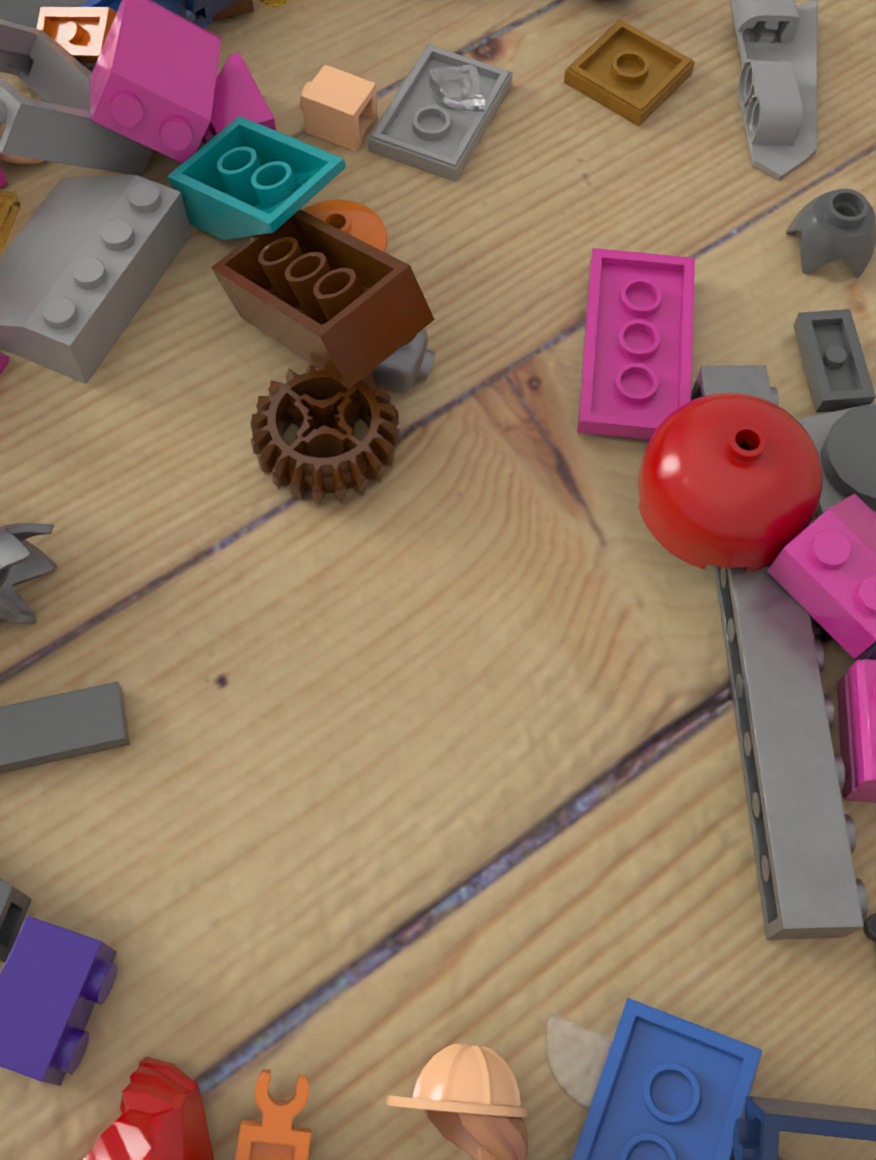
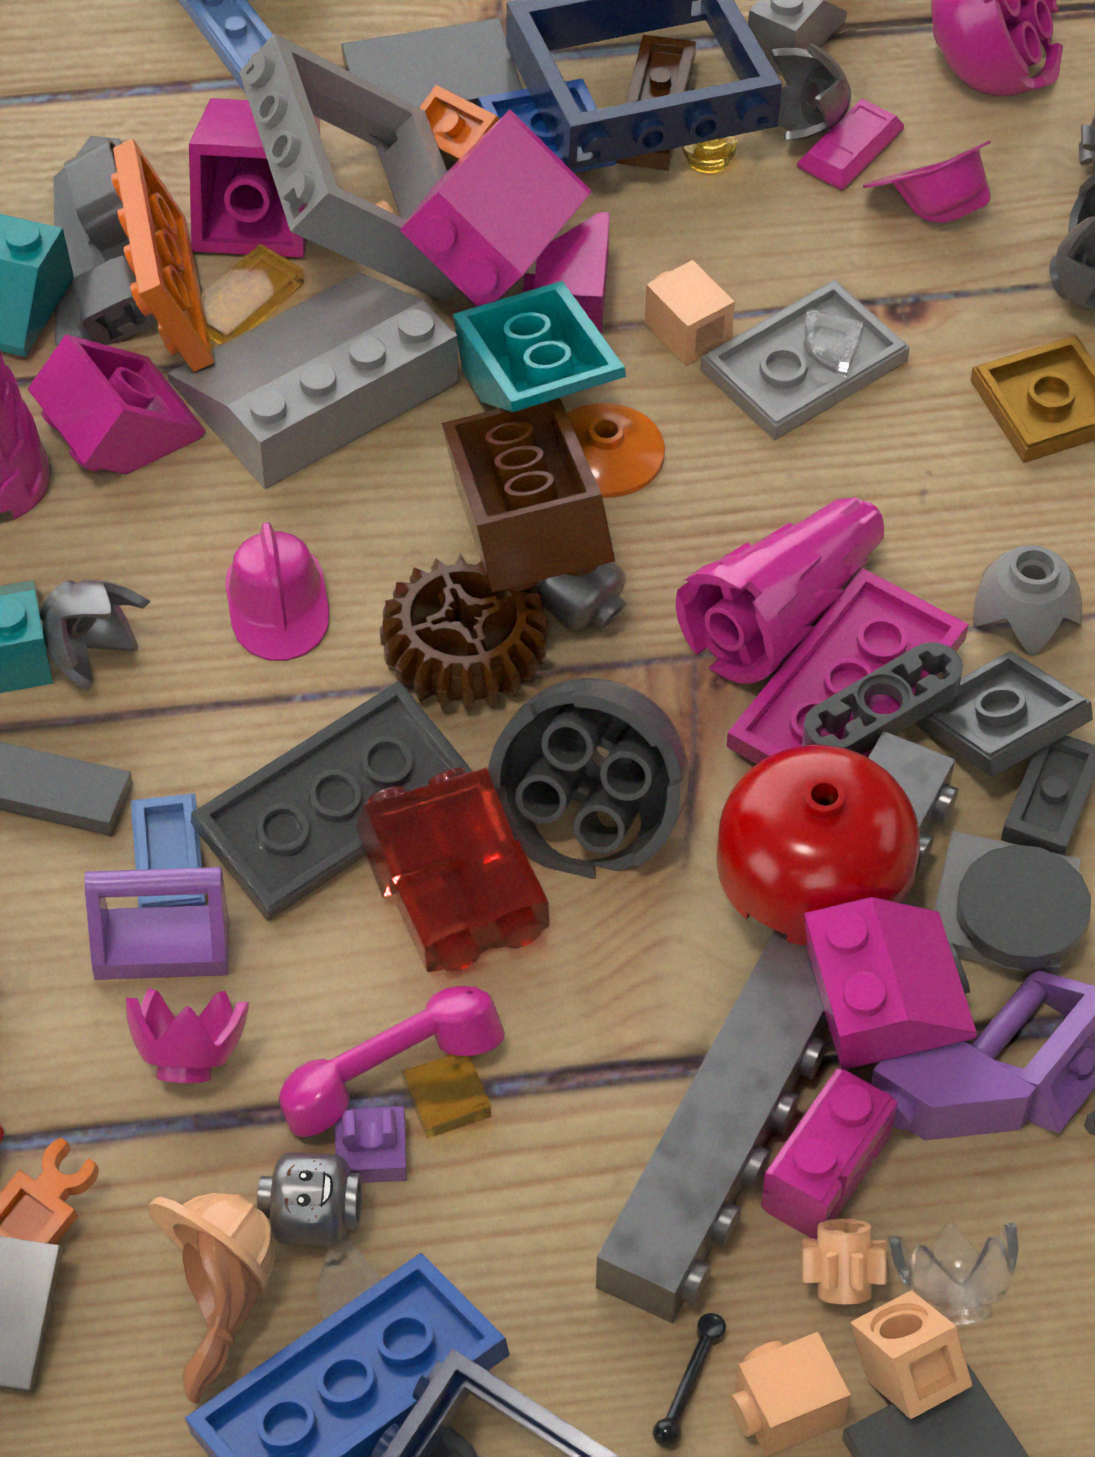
camera: 30 degrees right, 10 degrees down
(151, 470) = (276, 596): none -> dark pink piece
(192, 741) = (166, 841): none -> medium blue tile
(225, 813) = (157, 939): none -> medium lavender tile
(301, 626) = (299, 814): none -> dark grey tile
(319, 914) = (185, 1045): none -> dark pink piece
(409, 612) = (430, 824): none -> clear red brick
(449, 895) = (457, 1016): none -> dark pink piece
(475, 661) = (473, 906): none -> clear red brick
(510, 1002) = (311, 1199): none -> flat silver head
(514, 481) = (553, 757): none -> dark grey cylinder
(517, 914) = (373, 1142): none -> medium lavender tile
(544, 295) = (768, 594): none -> dark pink cone
(549, 834) = (446, 1094): none -> clear yellow tile
(683, 366) = (896, 681): none -> dark grey beam
(714, 213) = (1028, 604): none -> light grey piece
(762, 315) = (1006, 714): none -> dark grey tile

